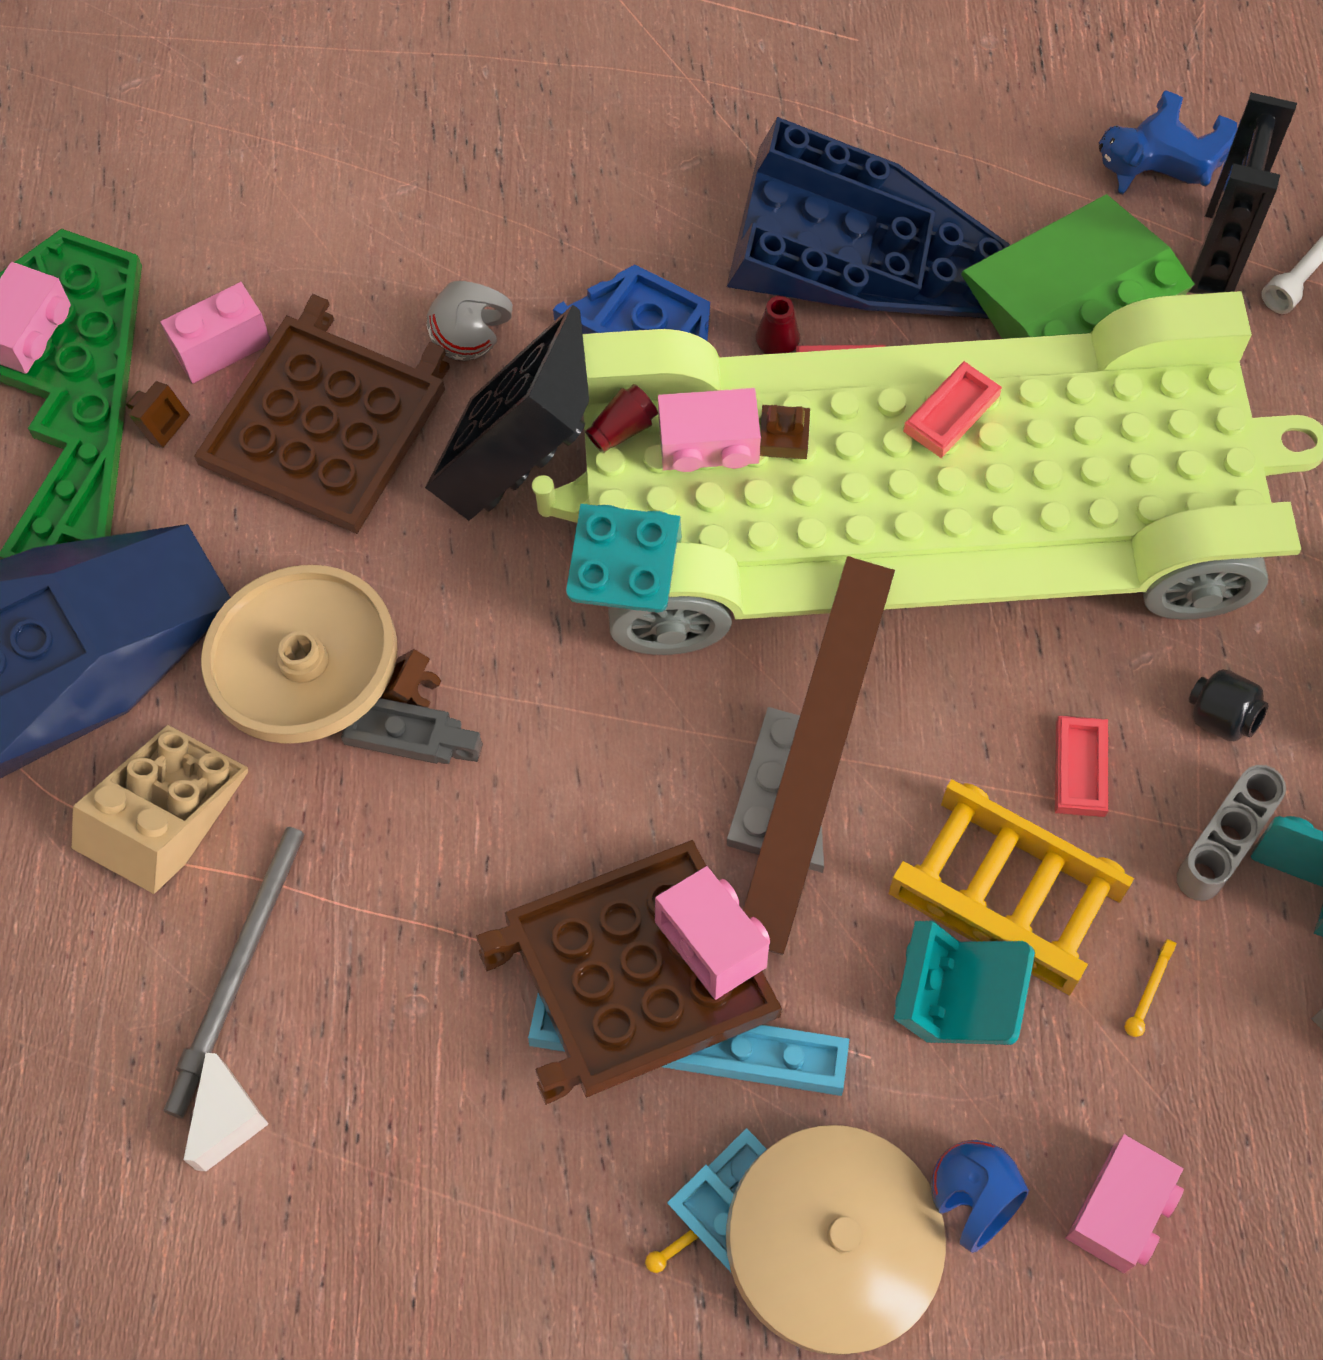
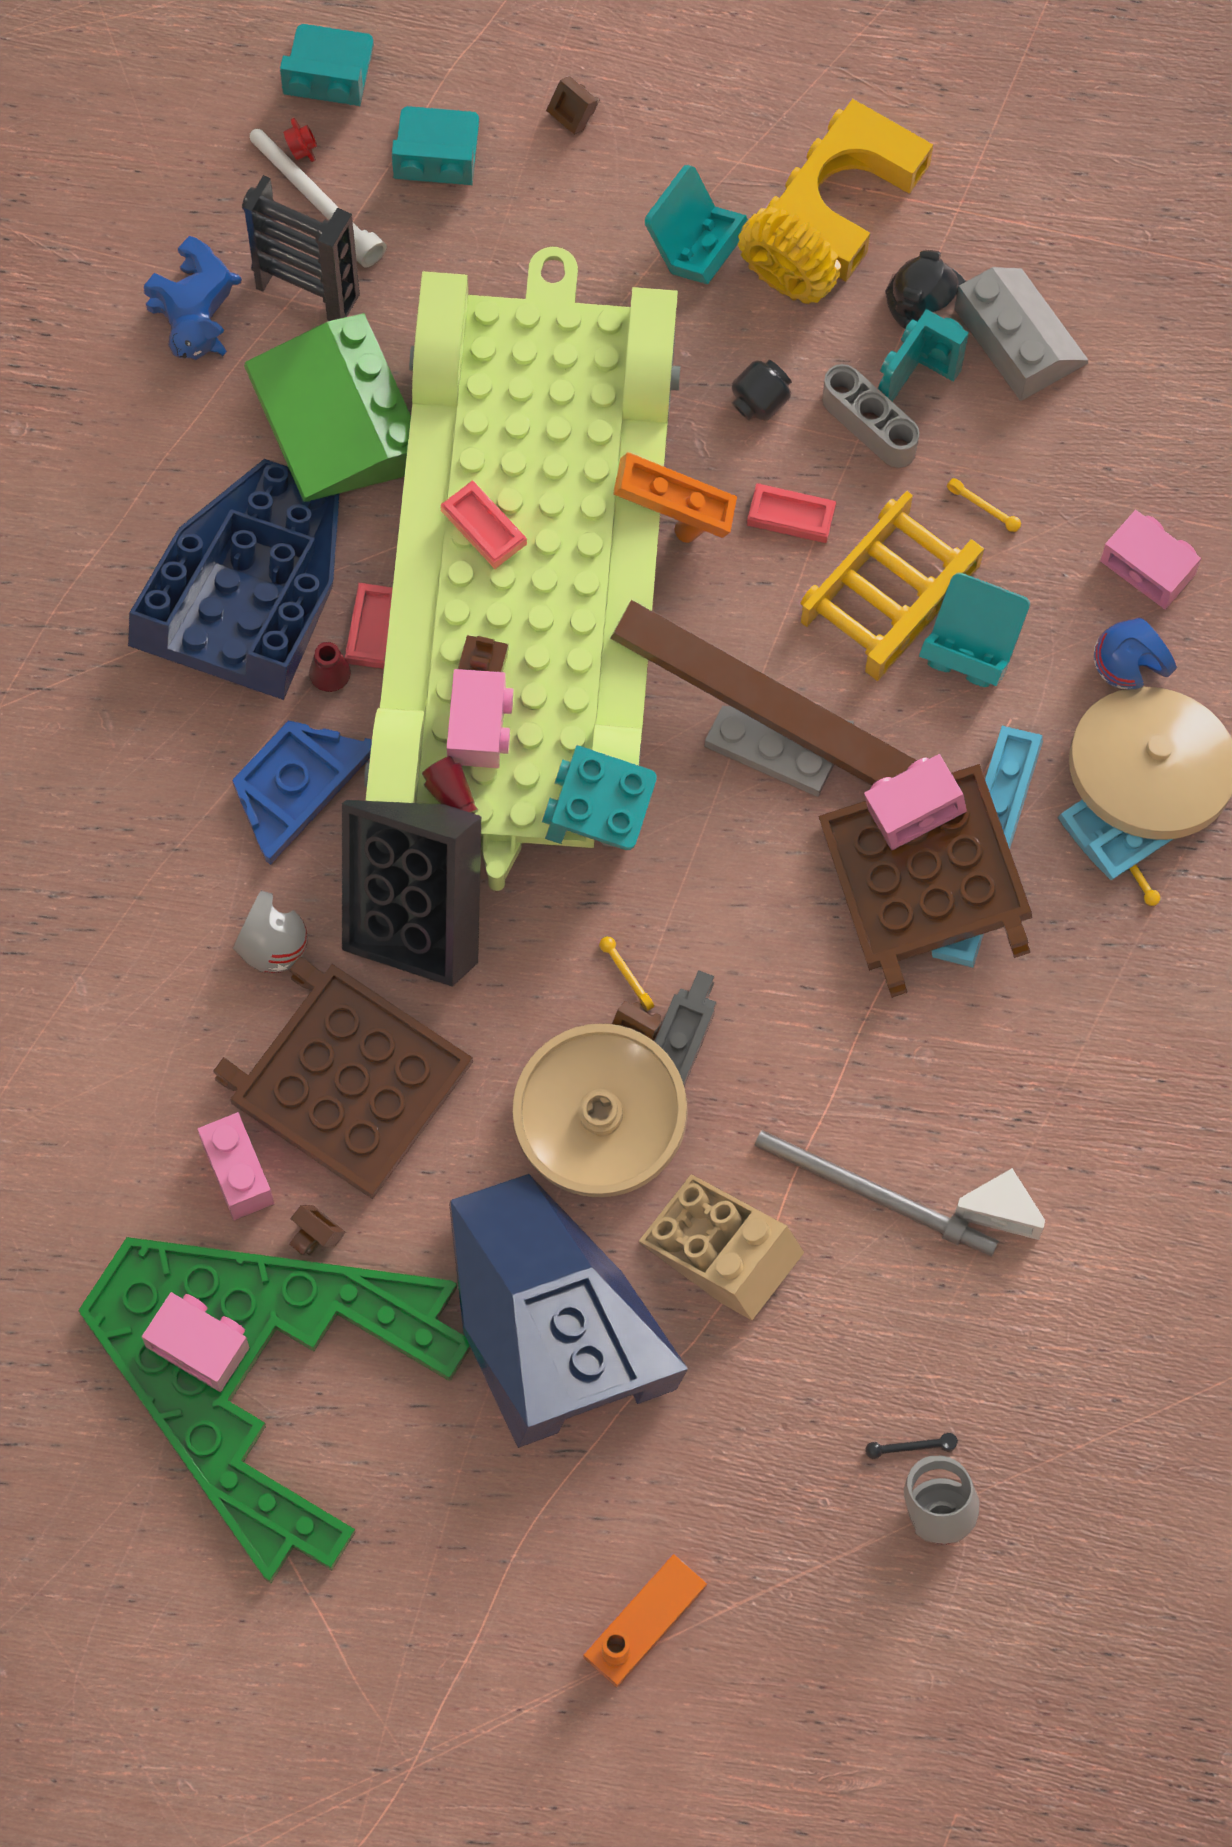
camera: 85 degrees left, 5 degrees up
(507, 646) = (608, 945): none -> yellow hinge
(1046, 606) = (689, 501): none -> orange piece

